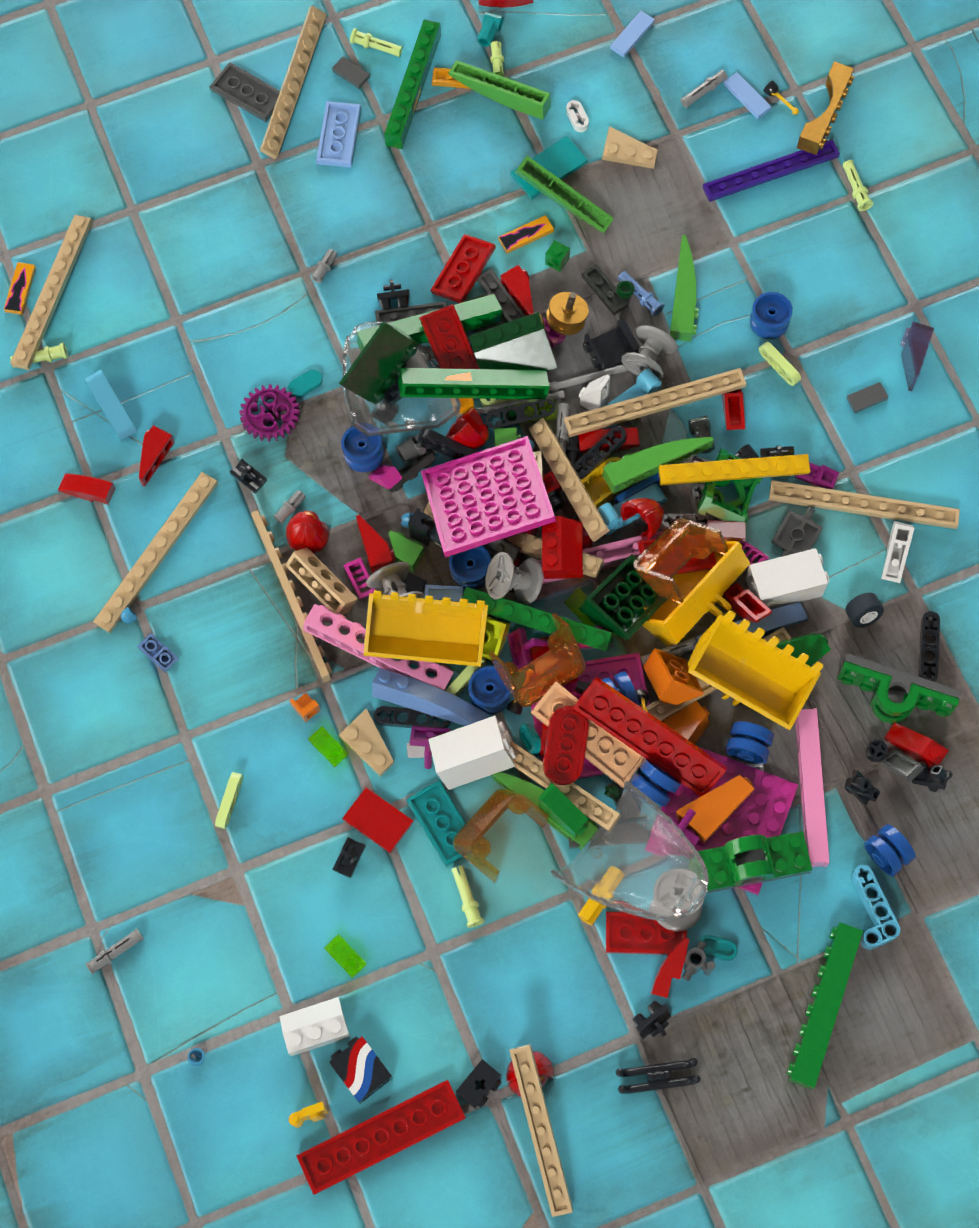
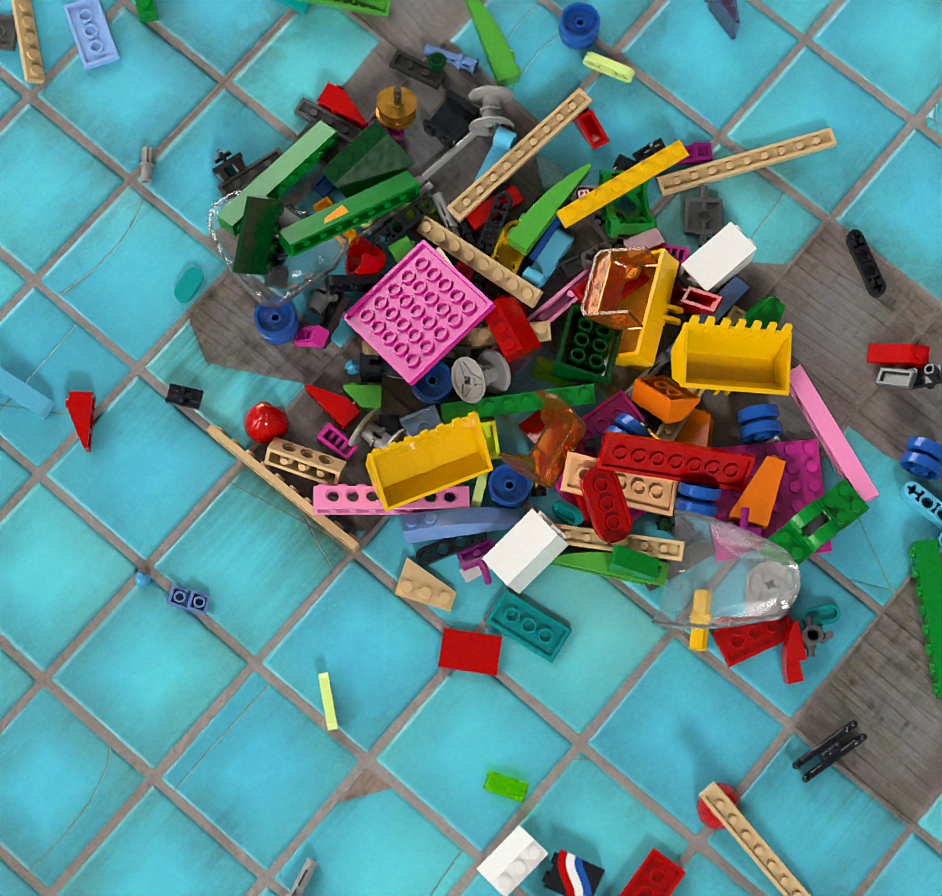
camera: 30 degrees left, 5 degrees up
(87, 488) = (37, 479): red slope -> none
(155, 552) = (135, 508): tan plate -> none
(257, 423) = (165, 343): magenta gear -> none
(289, 506) = (237, 406): light grey axle -> none
(305, 707) = (350, 582): orange panel -> none
(328, 746) = (390, 608): clear neon green slope -> none
(349, 857) = (464, 698): black hips -> none
(448, 339) = (304, 183): red tile -> none
(463, 268) = (277, 109): red tile -> none
(469, 906) = (591, 686): yellowish green pin -> none
(470, 838) = (563, 626): clear orange windscreen -> none
(481, 1072) = (674, 845): black brick -> none
(521, 647) = (516, 436): magenta plate -> none
(526, 234) = (317, 50): tile -> none
(557, 256) = (358, 57): green brick -> none
(596, 393) = (461, 171): white slope -> none
(650, 512) = (567, 257): red hair -> none
(654, 1023) = (796, 714): black hips -> none
(700, 428) = (569, 159): clear smoke piece -> none
(861, 788) = (872, 415): black hips -> none
(864, 610) = (795, 256): black wheel -> none
(867, 397) = (700, 62): dark grey tile -> none
(879, 747) = (870, 373): black wheel -> none
(897, 551) = (796, 190): white slope -> none
(906, 687) = (870, 309): green piece -> none

